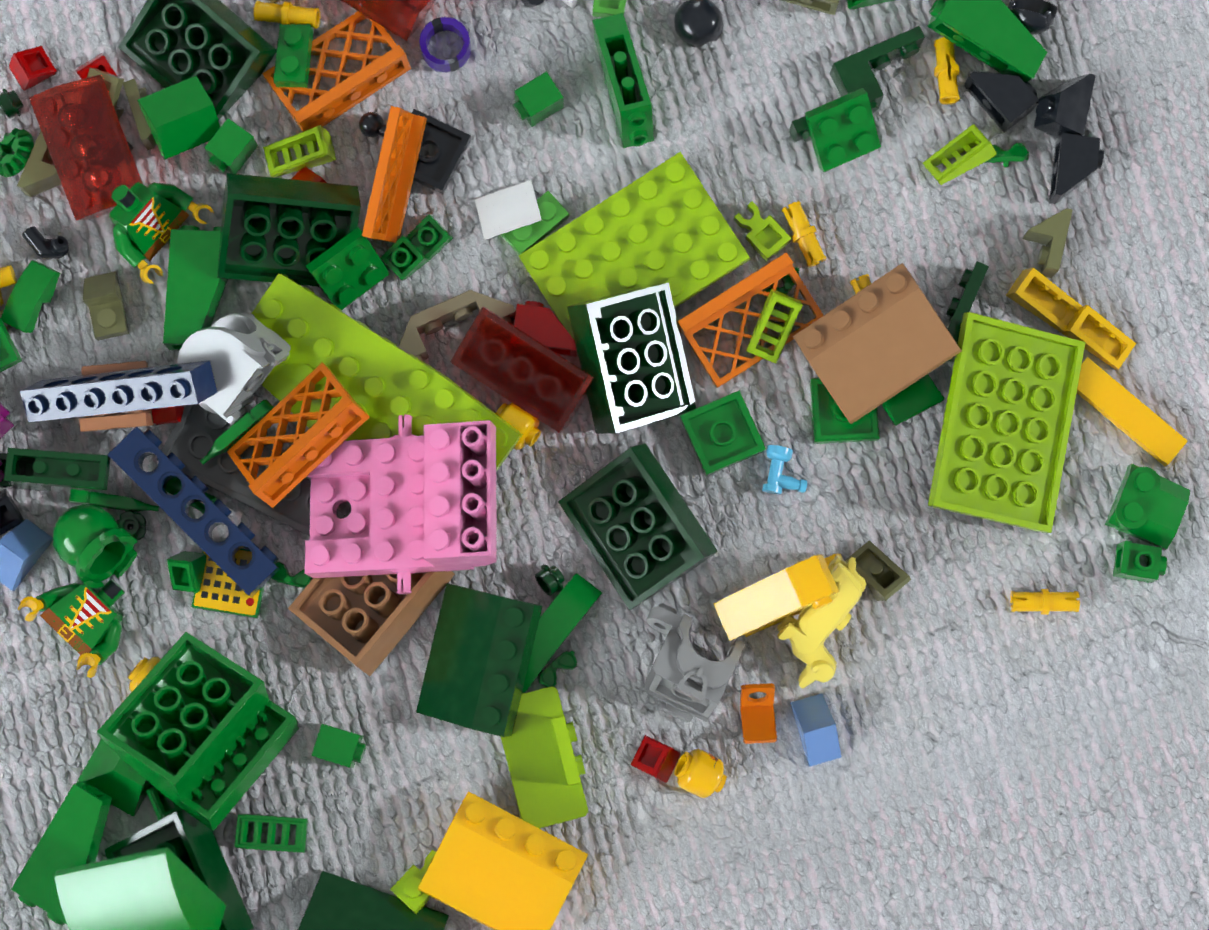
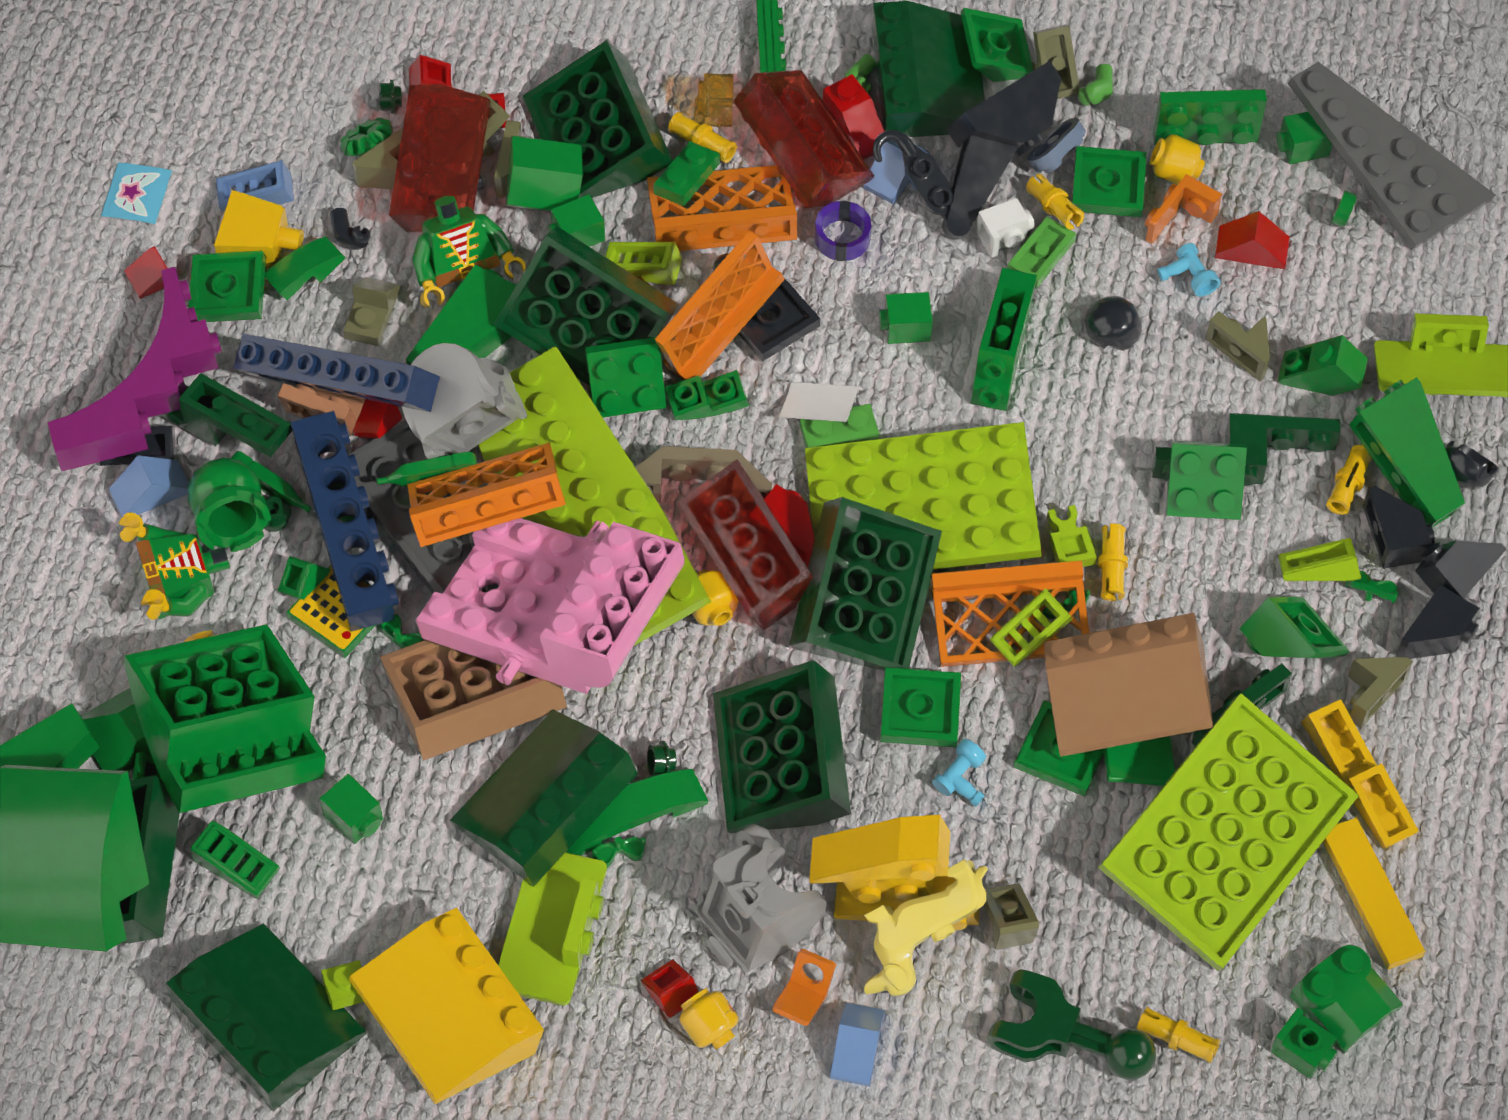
camera: 30 degrees right, 20 degrees down
(956, 643) = (1058, 1026): none -> dark green piece
(970, 228) = (1290, 630): none -> green slope

